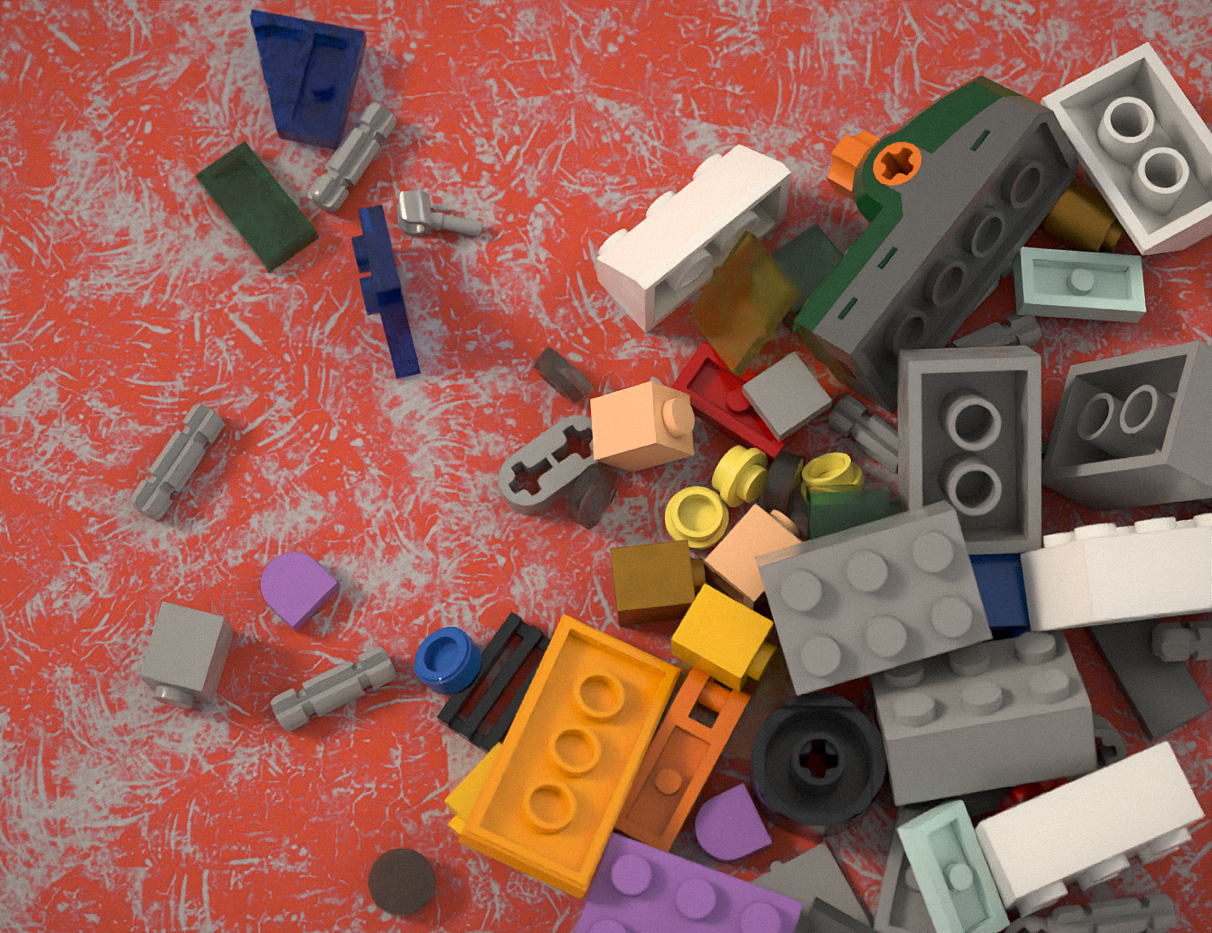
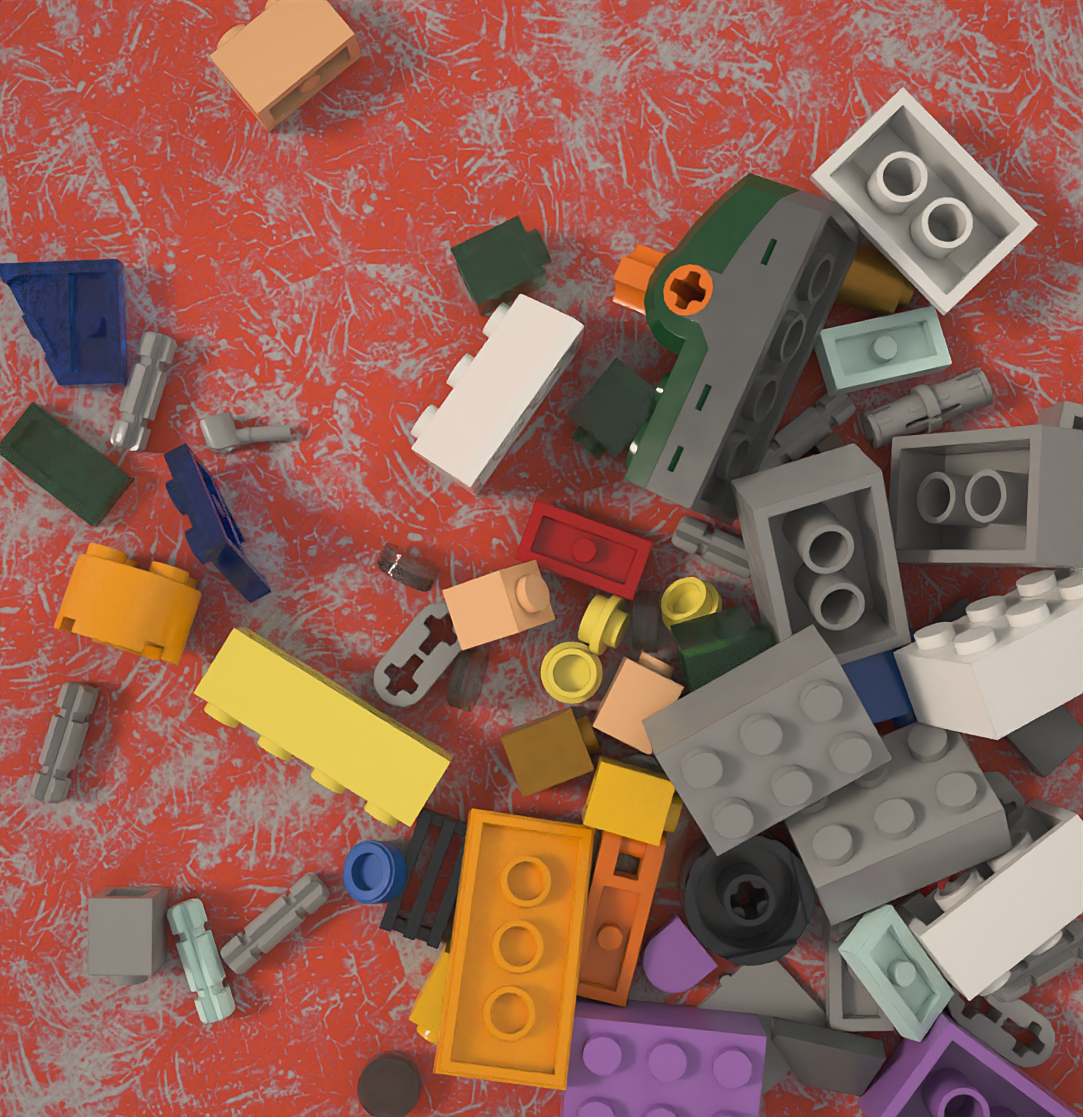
camera: 15 degrees left, 15 degrees up
(248, 707) = (201, 960): none -> light aqua axle
(285, 338) = (129, 606): none -> light orange brick
(296, 587) = (212, 835): medium lavender tile -> none
(439, 505) = (323, 726): none -> light yellow brick
(726, 115) = (501, 264): none -> clear green brick
(744, 303) = (567, 458): clear yellow piece -> none
(786, 396) = (630, 540): light grey tile -> none
(1111, 343) = (926, 407): none -> light grey pin

